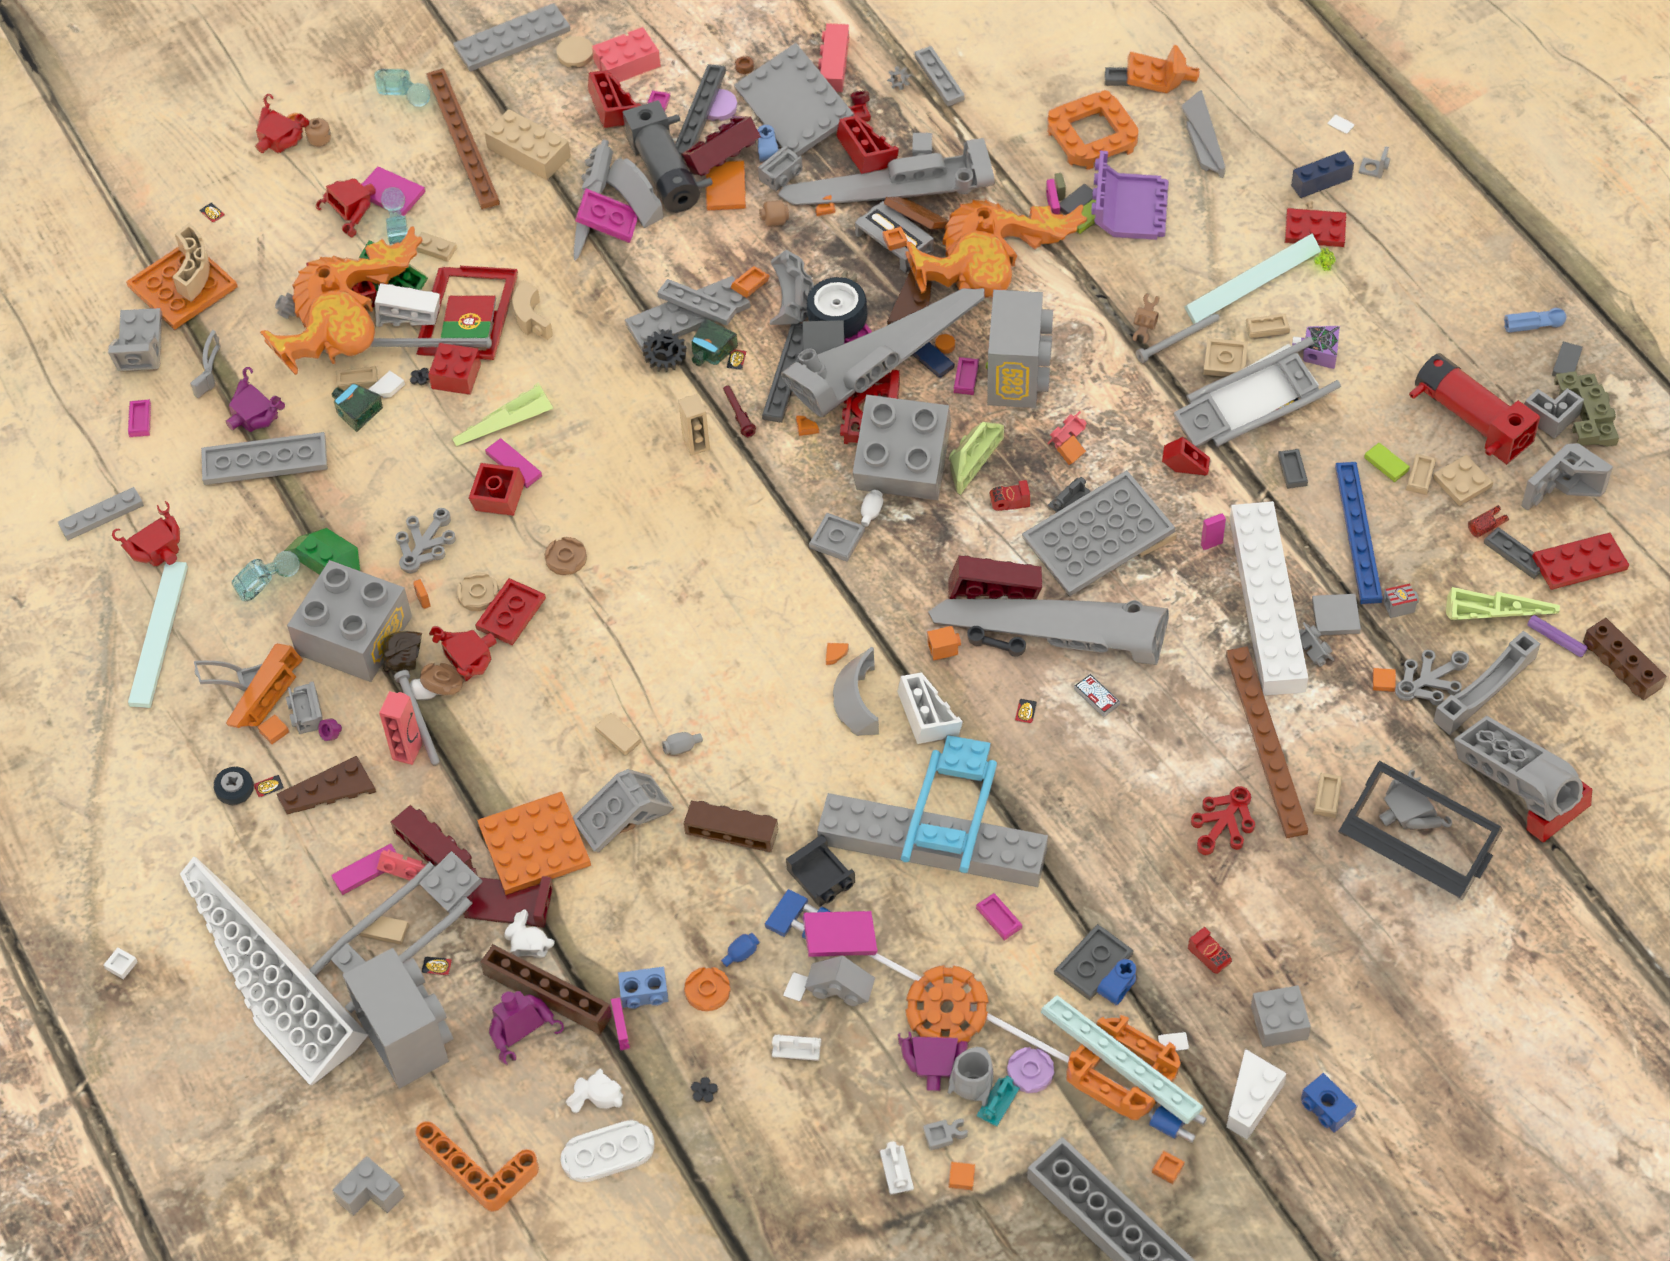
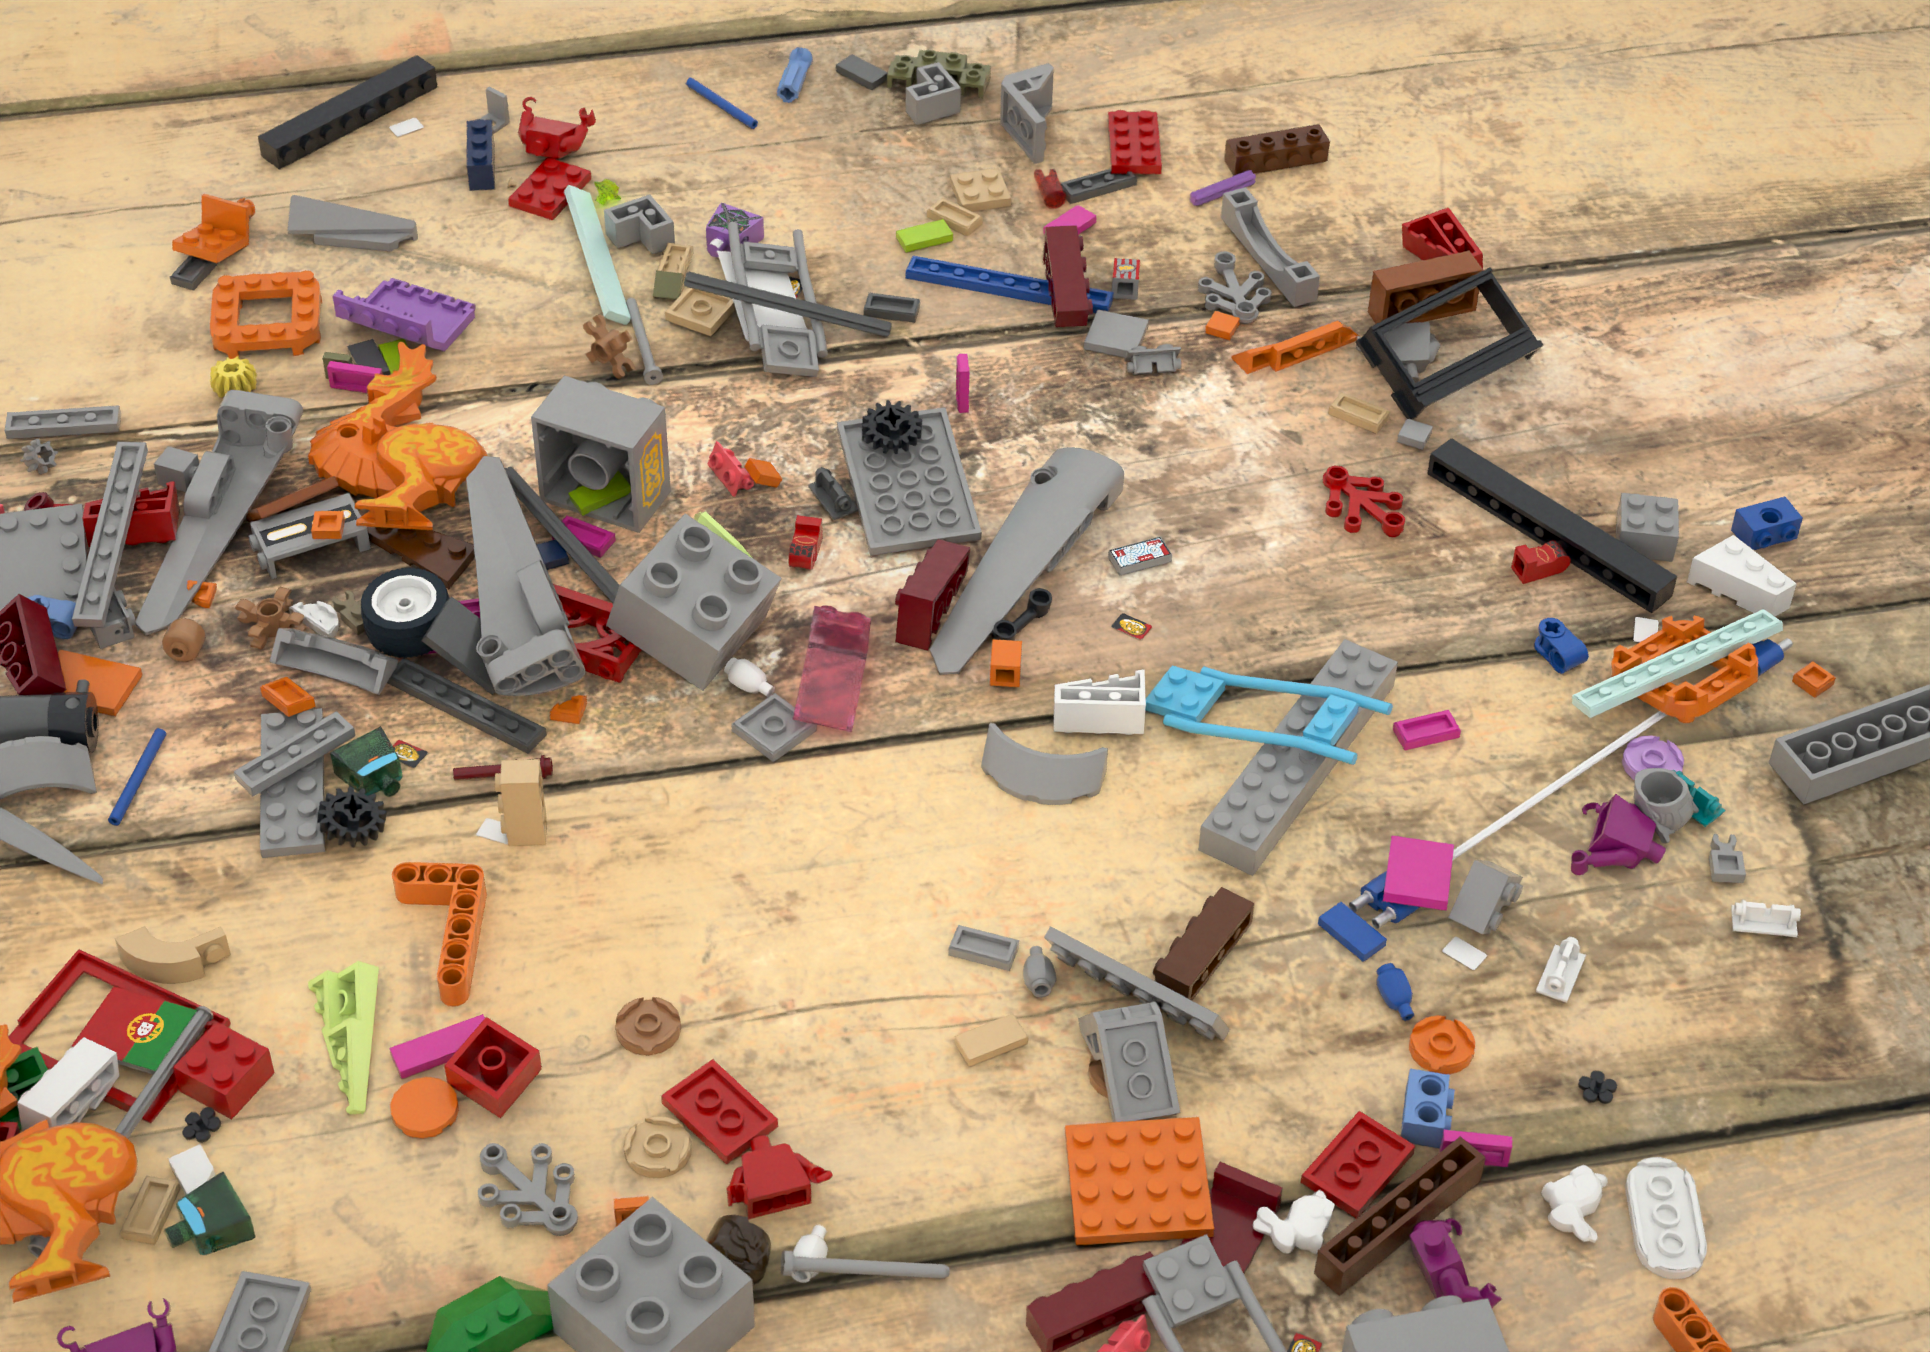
camera: 75 degrees left, 10 degrees down
(401, 727) = (905, 1266): coral brick -> none
(441, 679) = (806, 1222): medium nougat tile -> none
(463, 470) = (424, 1107): none -> orange tile
(586, 960) = (1358, 1164): none -> red plate
(603, 436) = (465, 893): none -> orange beam
(606, 215) = (56, 816): dark pink tile -> none
(661, 240) = (137, 777): none -> blue piece
(680, 787) = (1128, 980): none -> light grey plate
(692, 708) = (983, 947): none -> light grey tile
(813, 246) = (269, 616): none -> medium nougat pin
(820, 871) = (1306, 878): black panel -> none
(828, 136) = (110, 535): none -> light grey plate
(829, 269) = (318, 617): none -> white tile
(835, 652) = (961, 776): orange tile -> none
(896, 543) = (833, 668): none -> clear pink windscreen
(947, 992) = (1566, 796): orange plate -> none
(957, 356) = (563, 535): none -> dark grey axle
(962, 1175) = (1785, 862): orange tile -> none
(1021, 139) = (232, 375): none -> light yellow gear
(1092, 961) = (1519, 665): dark grey tile -> none
(1130, 500) = (892, 427): none -> black gear
(1185, 457) = (831, 382): red slope -> none
(1240, 329) = (668, 285): none -> olive tile
(1241, 402) = (787, 304): none -> dark grey axle
(1253, 951) = (1548, 521): none -> black brick
(1267, 743) = (1265, 437): dark orange plate -> none
(1268, 599) = (1075, 373): white brick -> none
(1293, 289) = (639, 221): none -> light grey brick
(1320, 838) = (1415, 434): none -> light grey tile
(1331, 85) = (347, 112): none -> black brick
(1363, 203) = (552, 137): none -> red torso
(1364, 558) = (1066, 276): none -> dark red wedge
(1377, 732) = (1296, 348): none -> orange wedge
(1452, 548) = (1075, 216): none -> dark pink tile
(1471, 605) = (1163, 226): yellowish green wedge -> none
(1475, 289) = (722, 103): none -> blue piece
(1477, 790) = (1408, 284): none -> dark orange brick
(1506, 427) = (939, 129): red piece -> none
(1521, 766) = (1424, 230): light grey brick -> none

